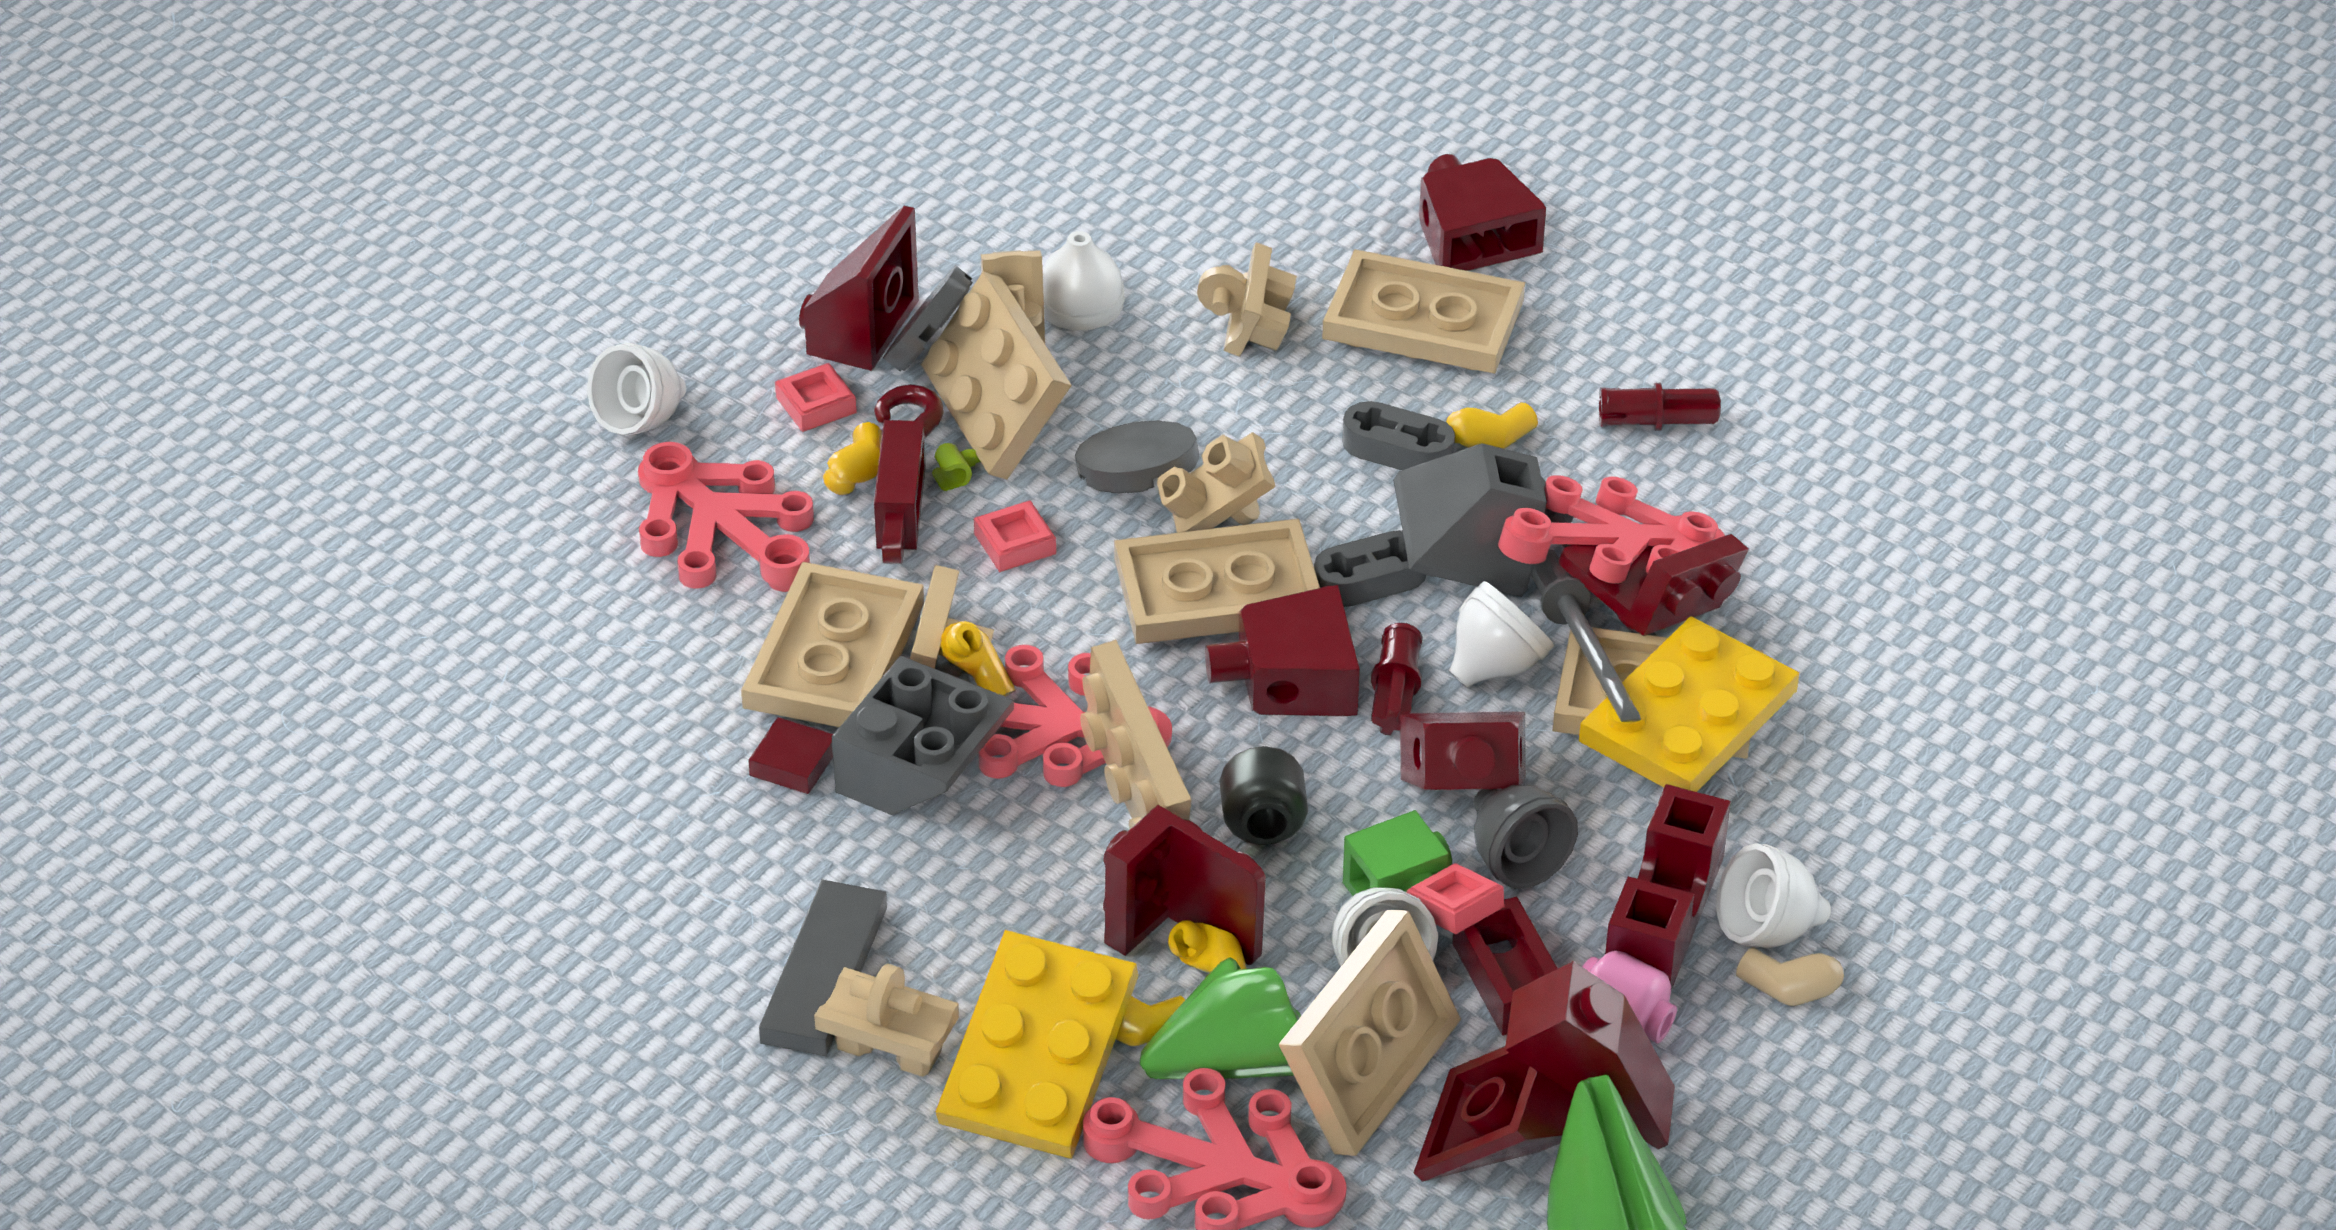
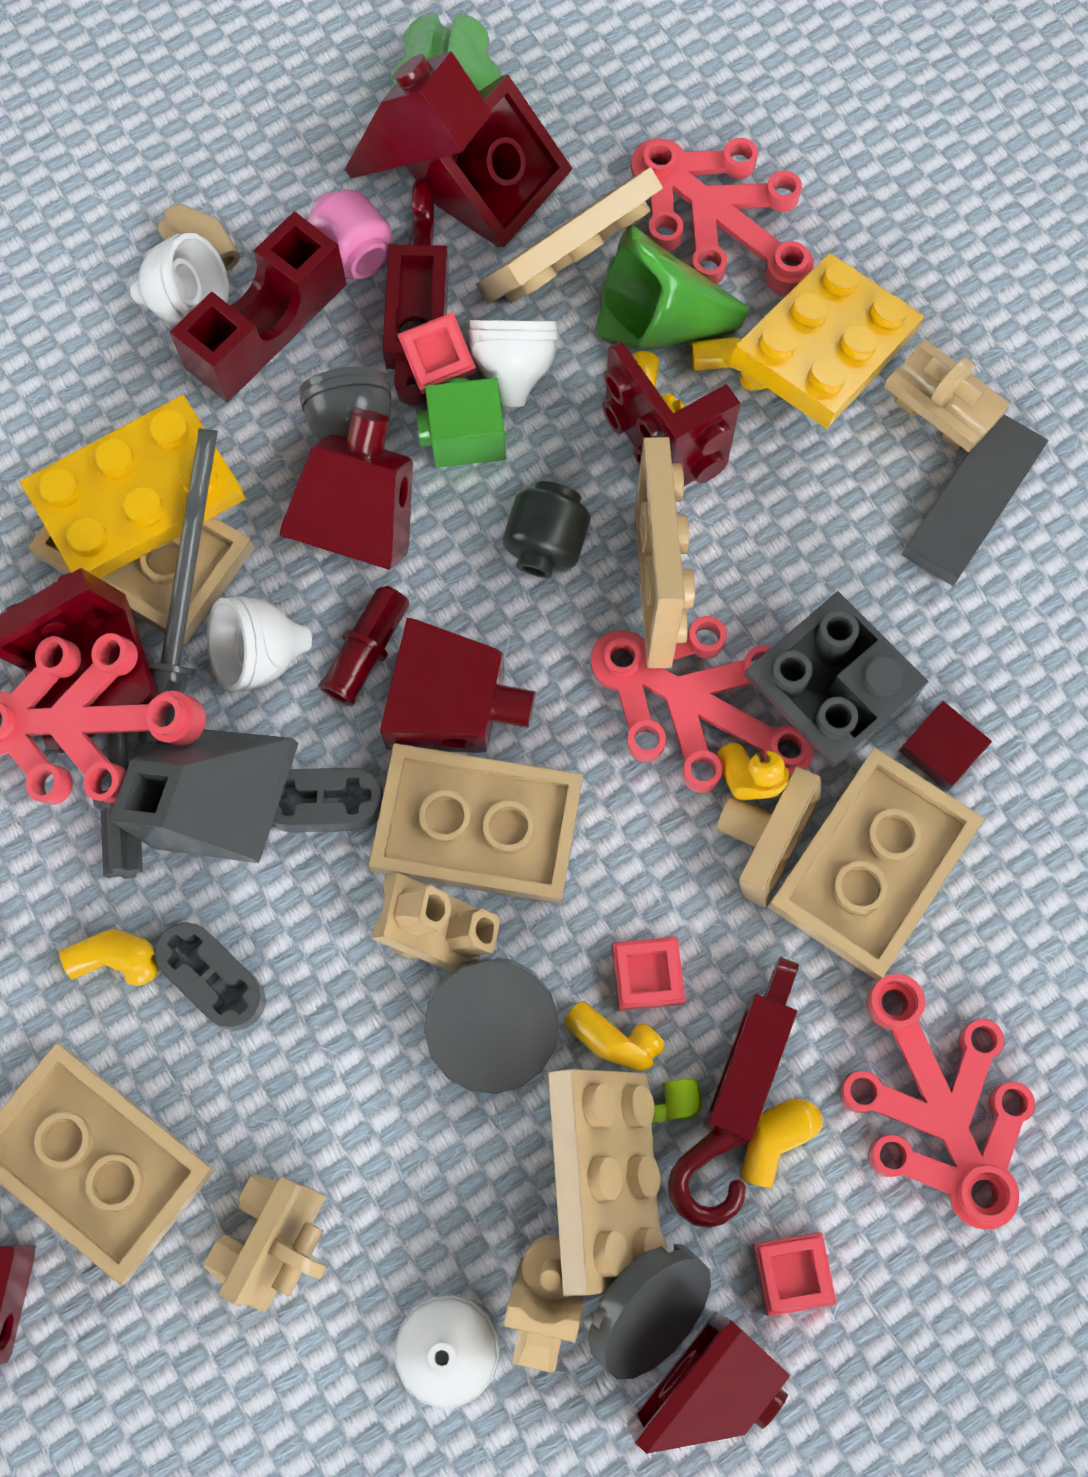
camera: 160 degrees left, 30 degrees up
(633, 389) = (999, 1322): white helmet -> none
(1021, 476) = (610, 1043): none -> yellow arm

